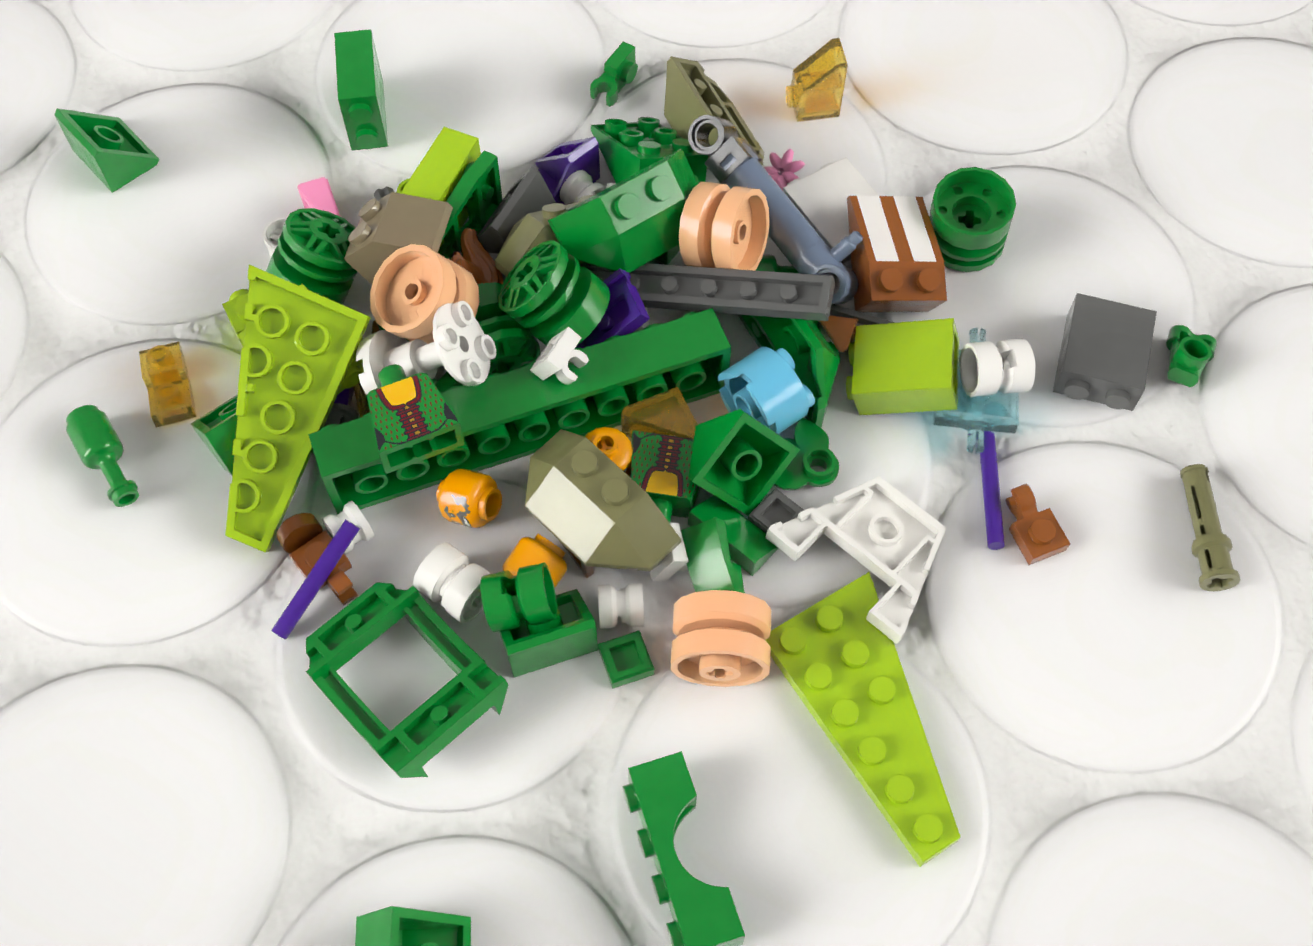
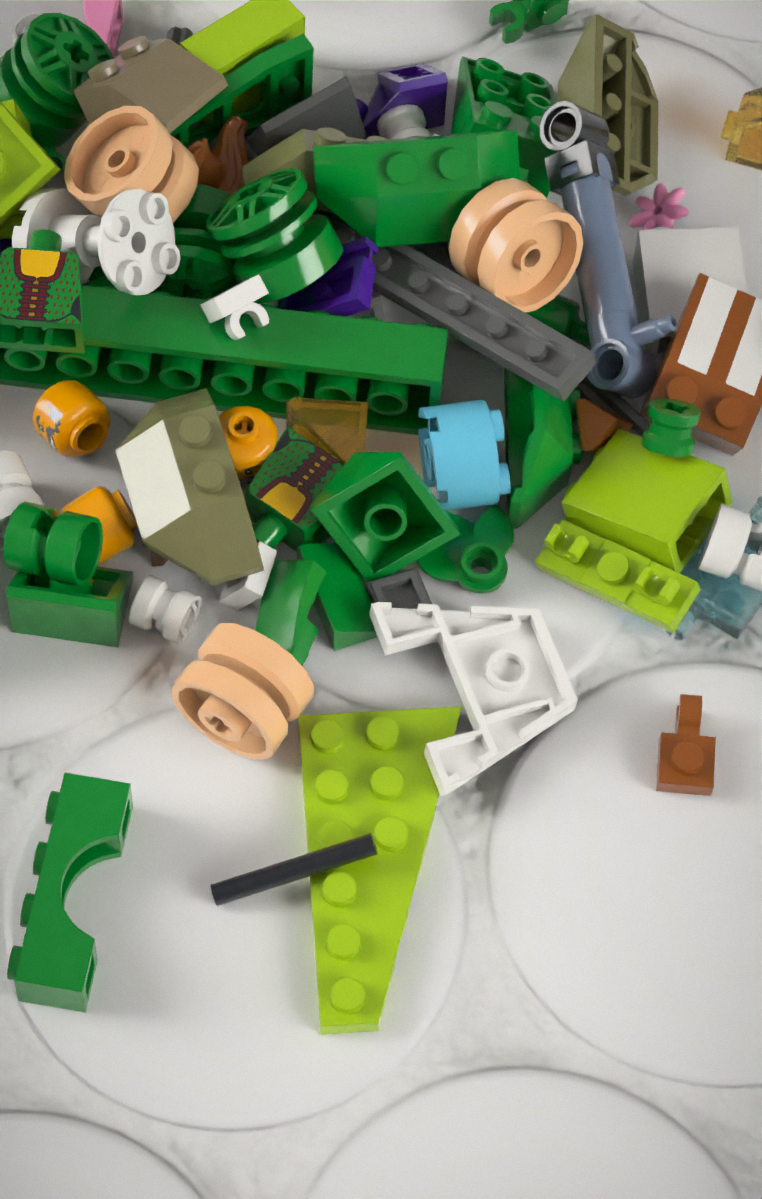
camera: 25 degrees right, 0 degrees up
(626, 659) = (140, 670): green tile -> none
(831, 753) = (294, 869): none -> black bar
(899, 307) = (671, 427): none -> green wheel
(916, 427) = (617, 575): none -> lime plate
(991, 493) = (665, 688): dark purple bar -> none

